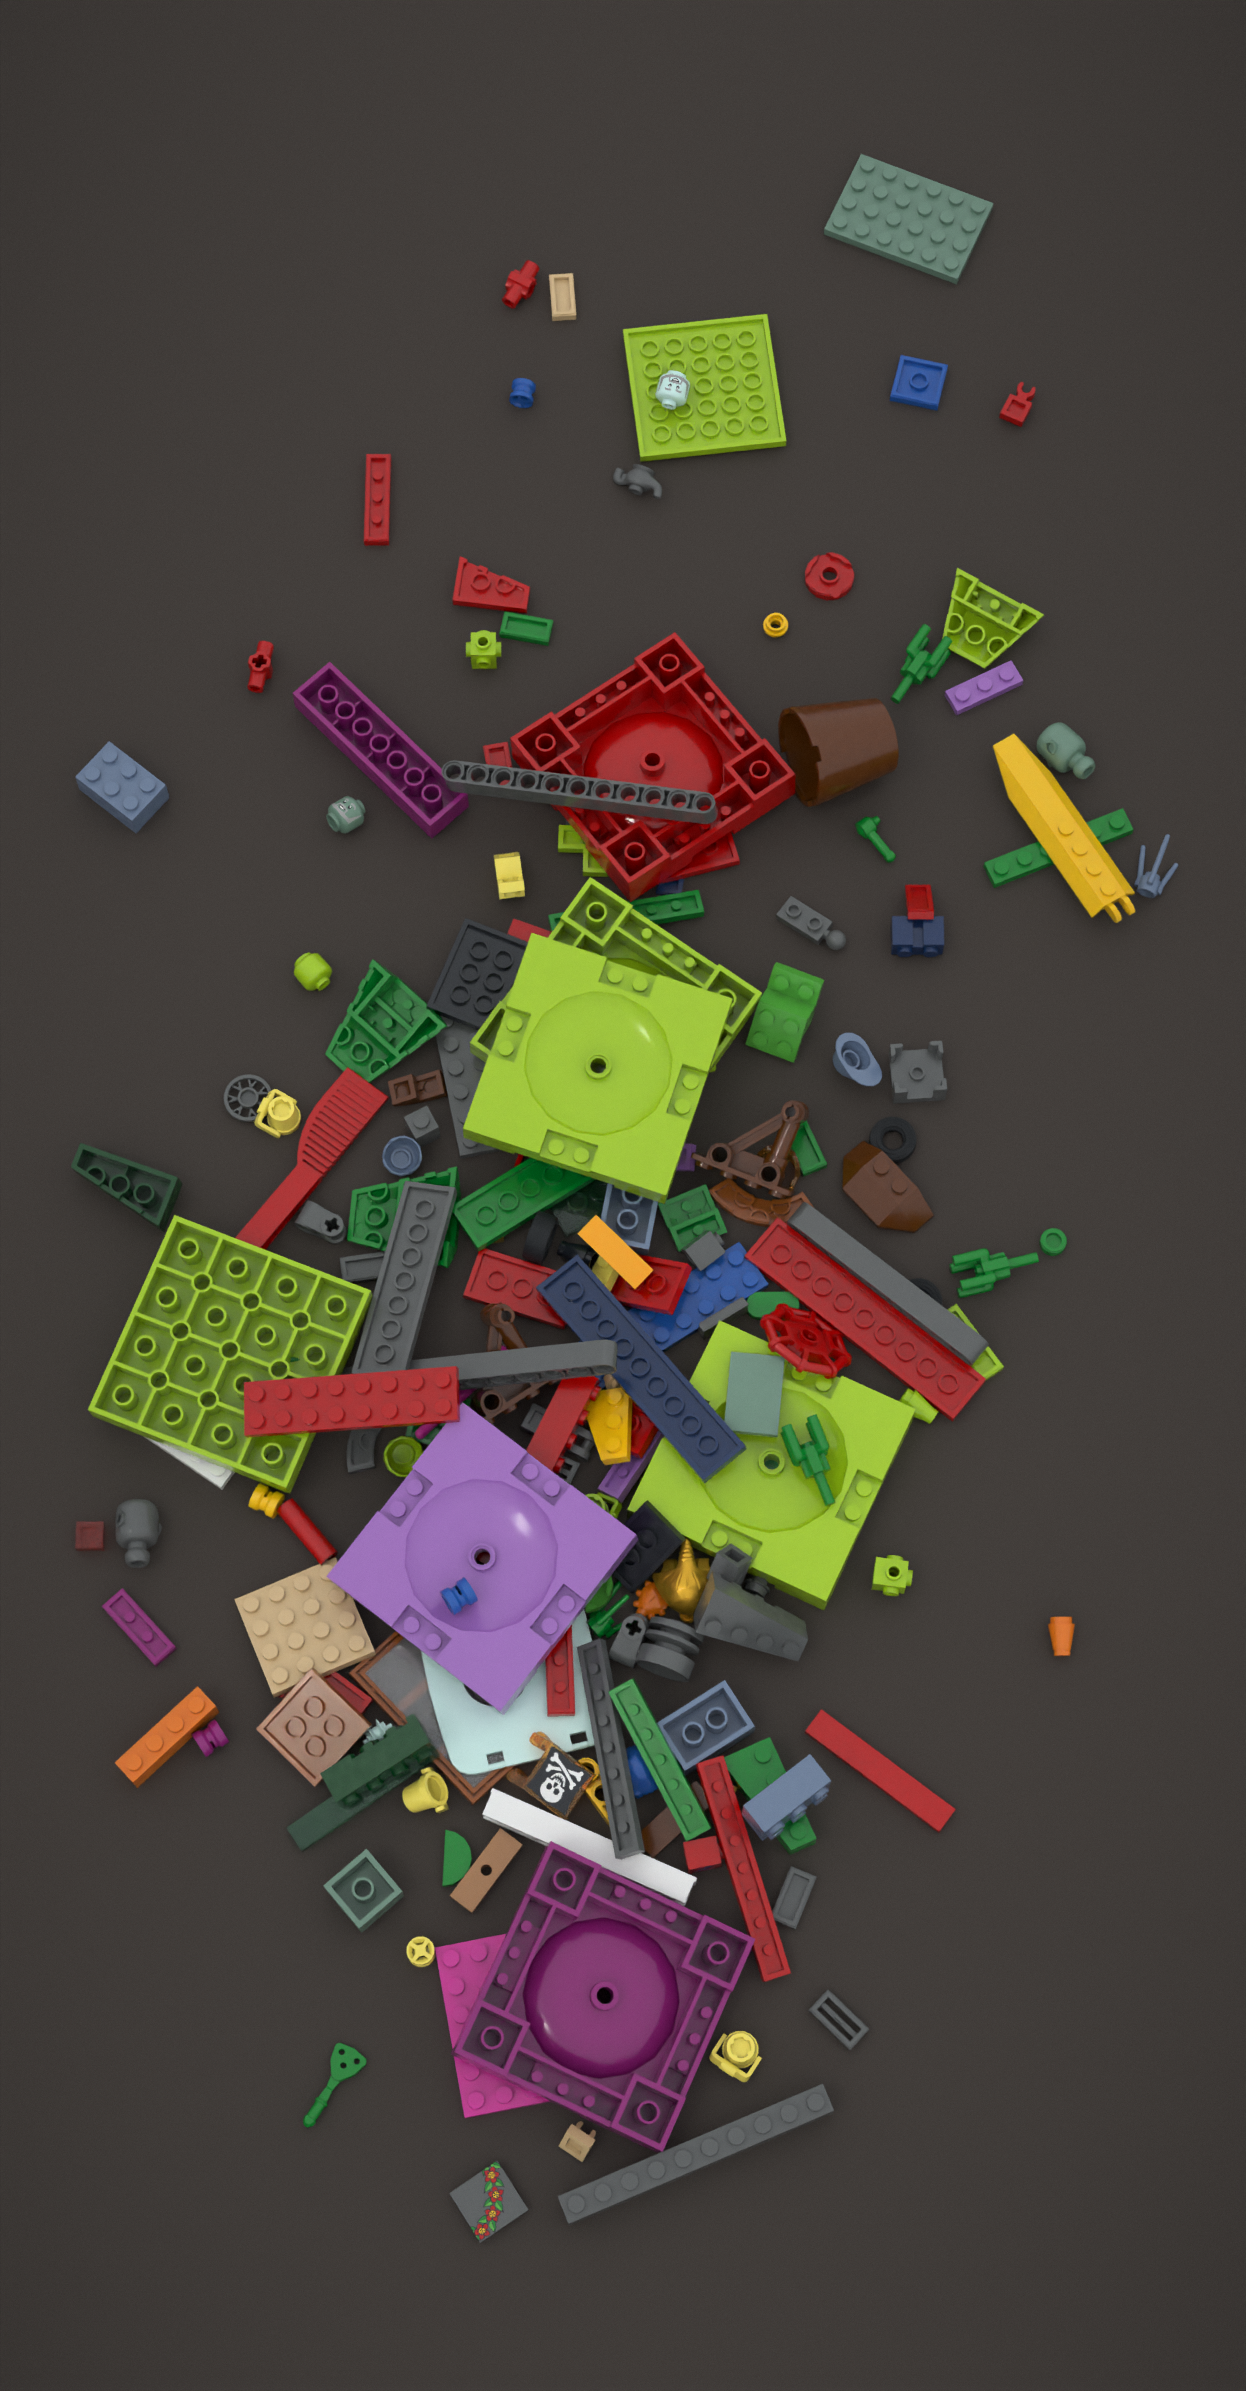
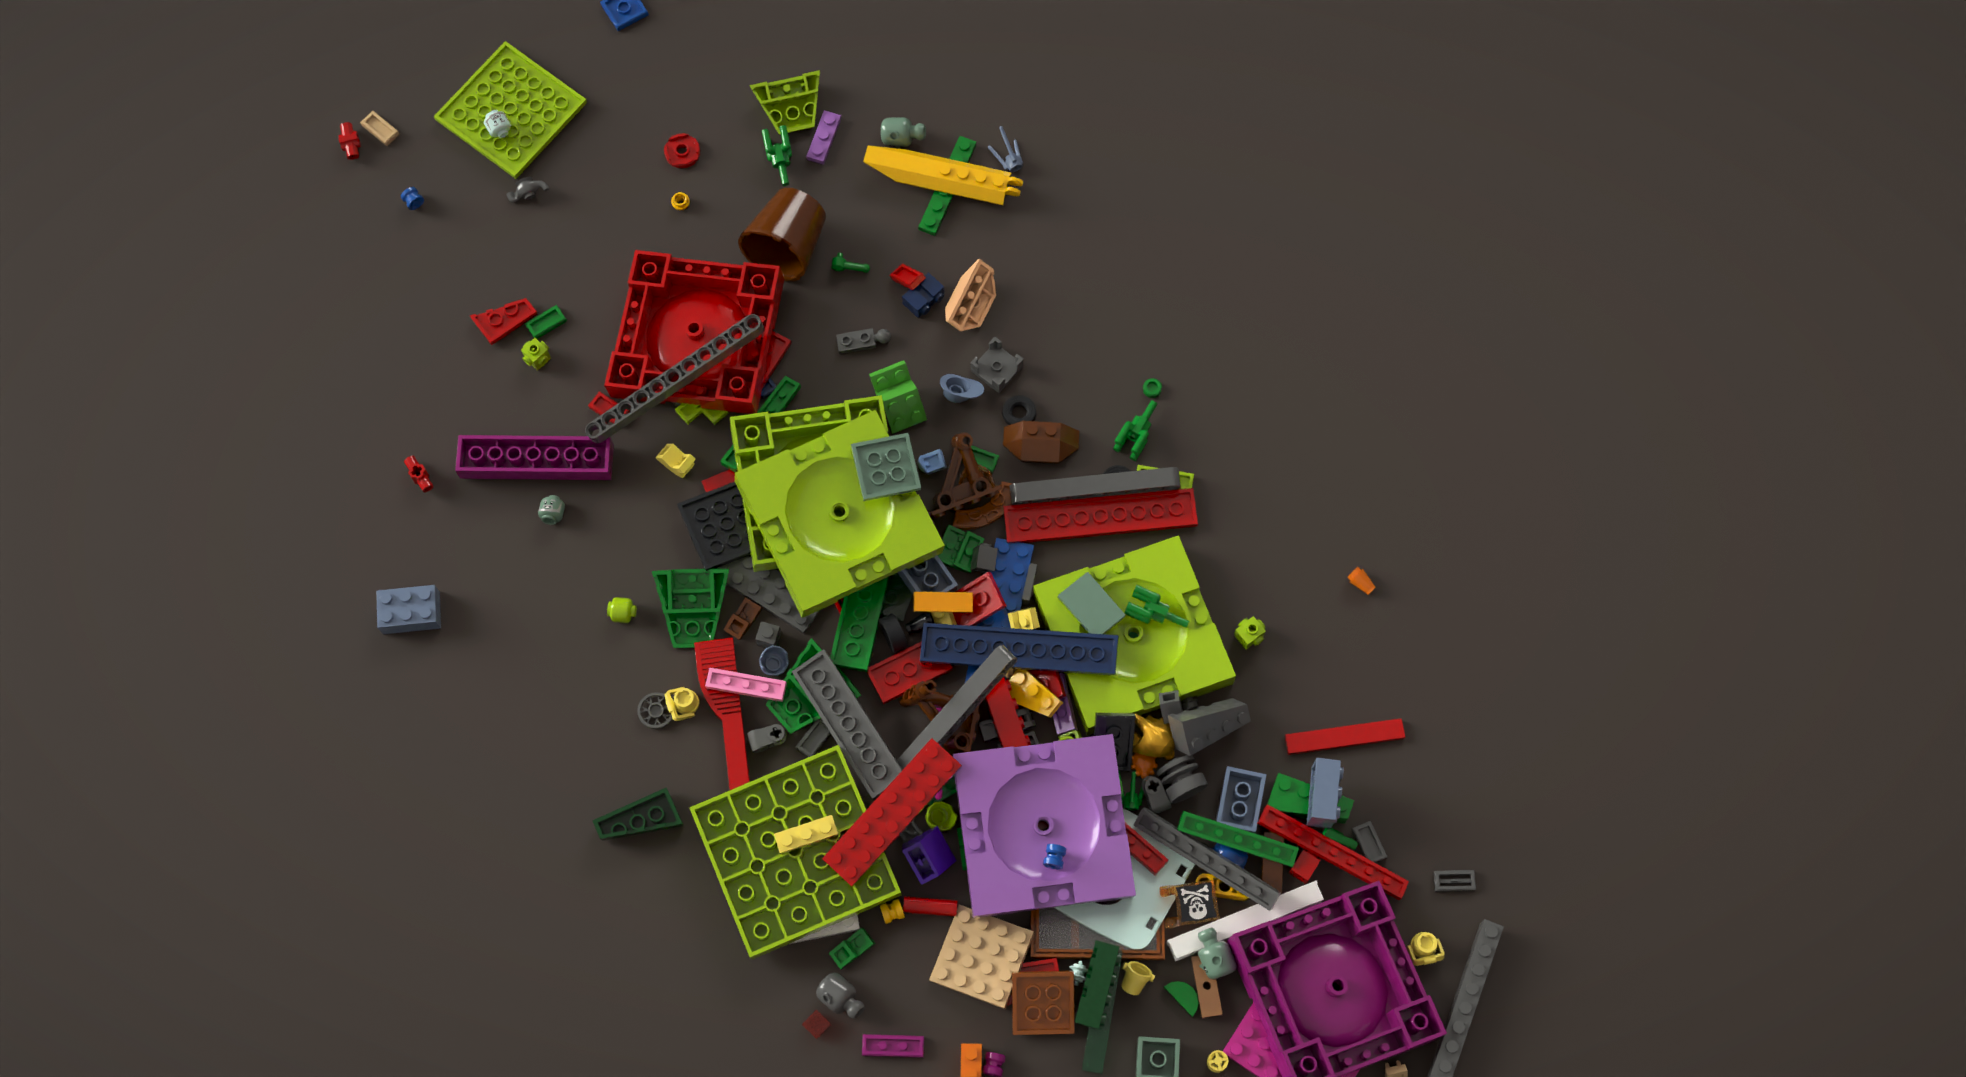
camera: 45 degrees left, 0 degrees up
(195, 1499) = (851, 948): none -> green slope
(253, 1345) = (806, 834): none -> light yellow plate
(351, 1152) = (746, 684): none -> bright pink plate
(352, 1480) = (928, 854): none -> dark purple slope
(377, 499) = (389, 326): red tile -> none
(519, 1849) = (1216, 956): none -> sand green piece
(678, 1345) = (1024, 619): none -> light yellow brick
(683, 1063) = (885, 467): none -> sand green plate
(752, 1107) = (931, 462): none -> light blue plate
(765, 1302) = (1047, 554): green tile -> none
(766, 1859) = (1339, 837): none -> green tile
(804, 1339) = (1086, 554): red plate -> none
(924, 1410) = (1168, 532): lime cone -> none
(961, 982) = (972, 297): none -> light nougat wedge

